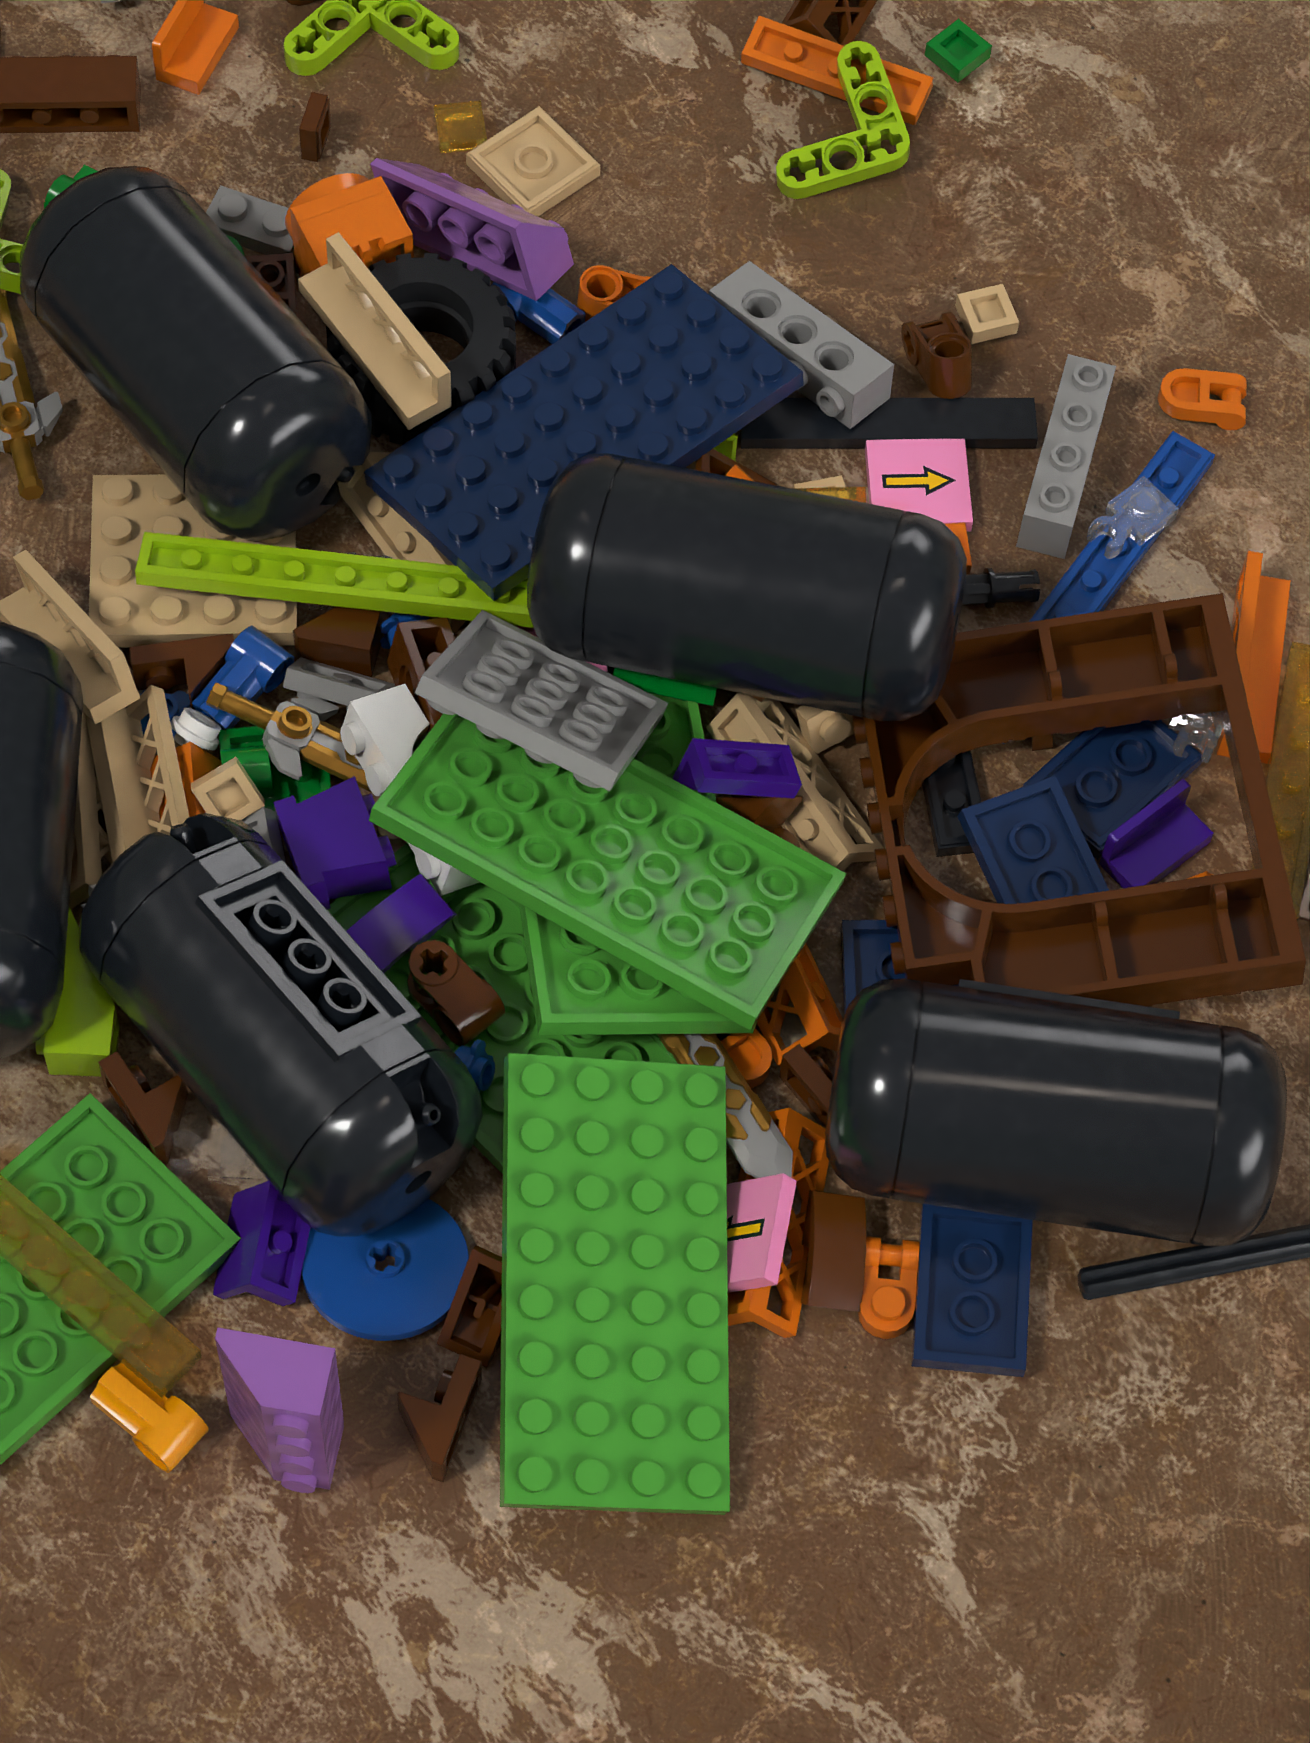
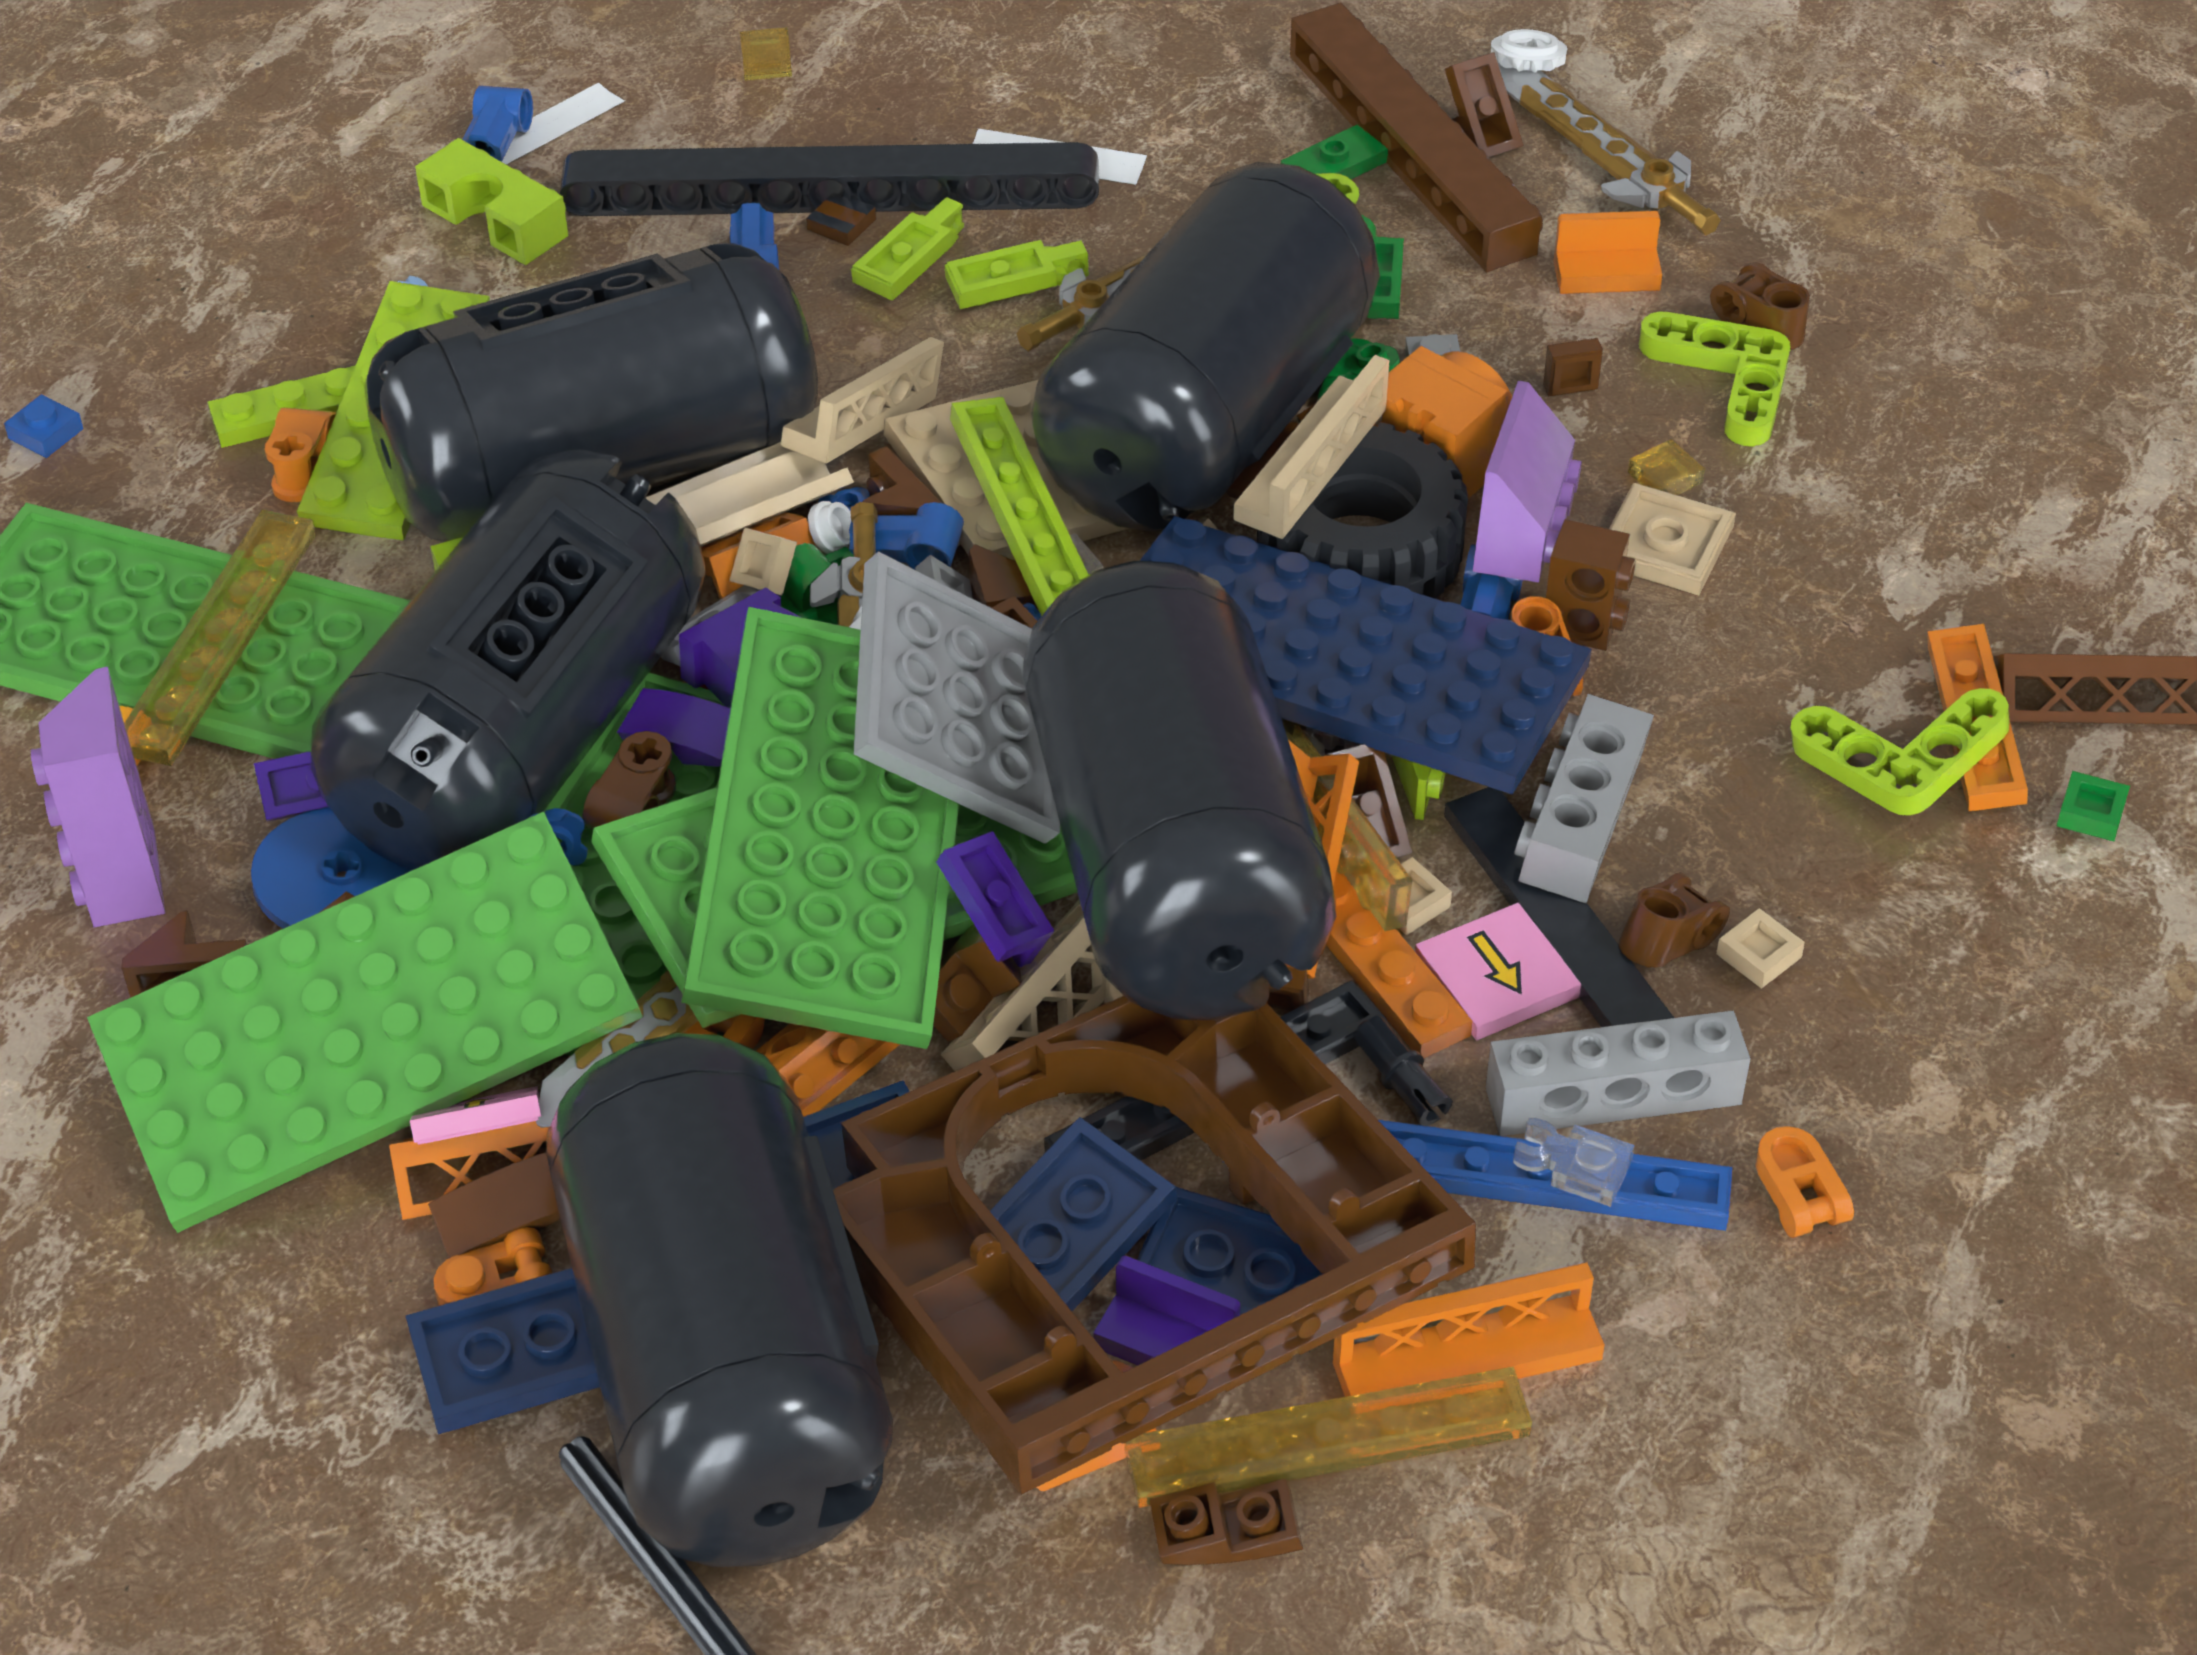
camera: 70 degrees right, 15 degrees down
(595, 227) = (1588, 580): none -> reddish brown brick

